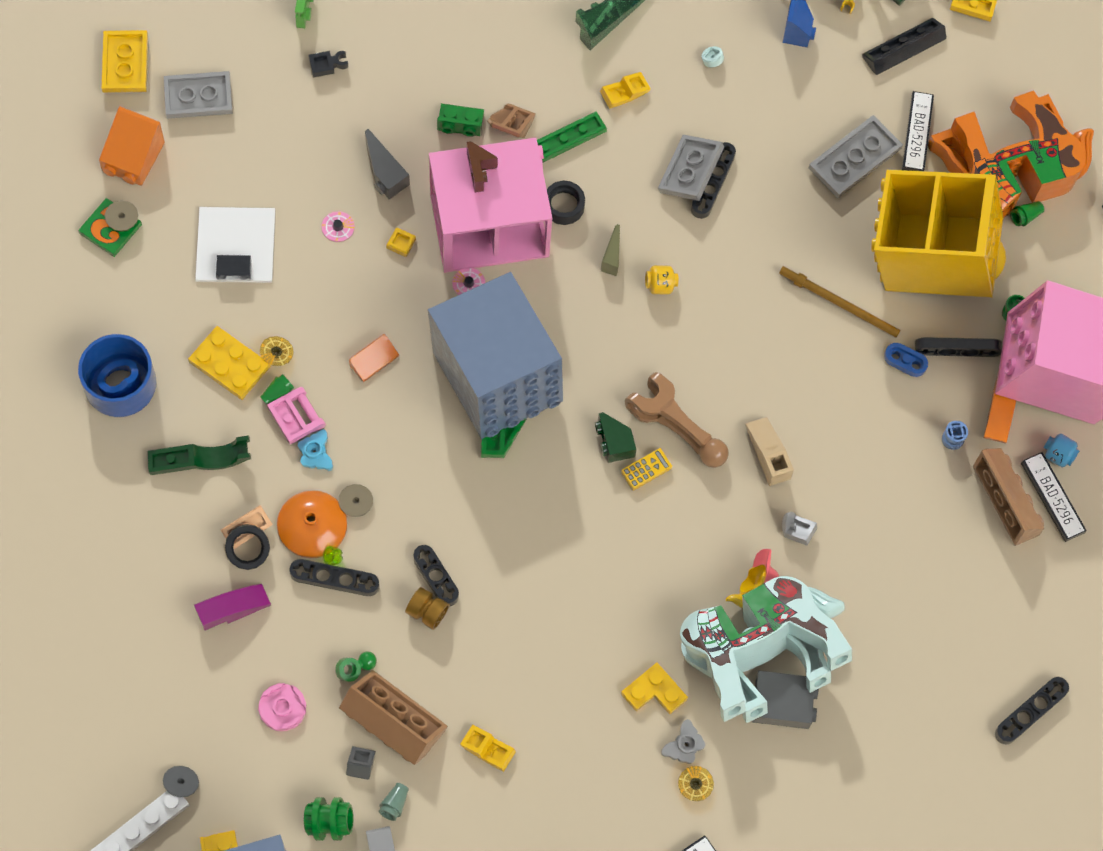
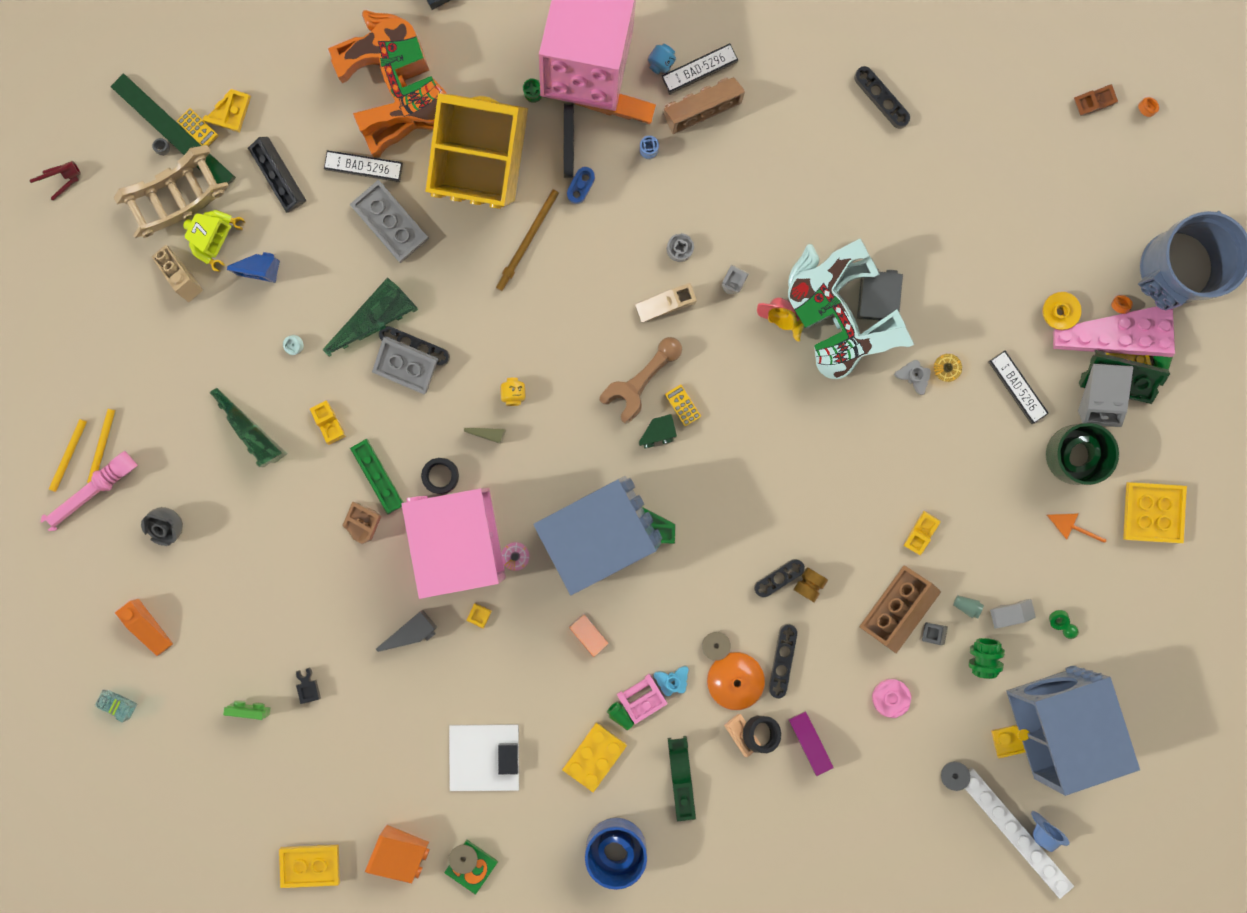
camera: 85 degrees left, 20 degrees up
(198, 94) = (341, 799): light grey plate -> none
(276, 351) = (584, 718): clear yellow piece -> none
(332, 555) = (765, 663): clear neon green hinge -> none
(338, 226) = (464, 670): bright pink piece -> none
(366, 661) = (852, 632): green plate -> none
(460, 120) = (360, 567): green bracket -> none
(479, 162) = (429, 555): reddish brown slope -> none
(656, 684) = (866, 399): yellow plate -> none
(756, 145) = (381, 308): none -> clear green wedge
(836, 468) = (680, 247): none -> light grey wheel
(1026, 213) = (441, 74): green cone -> none

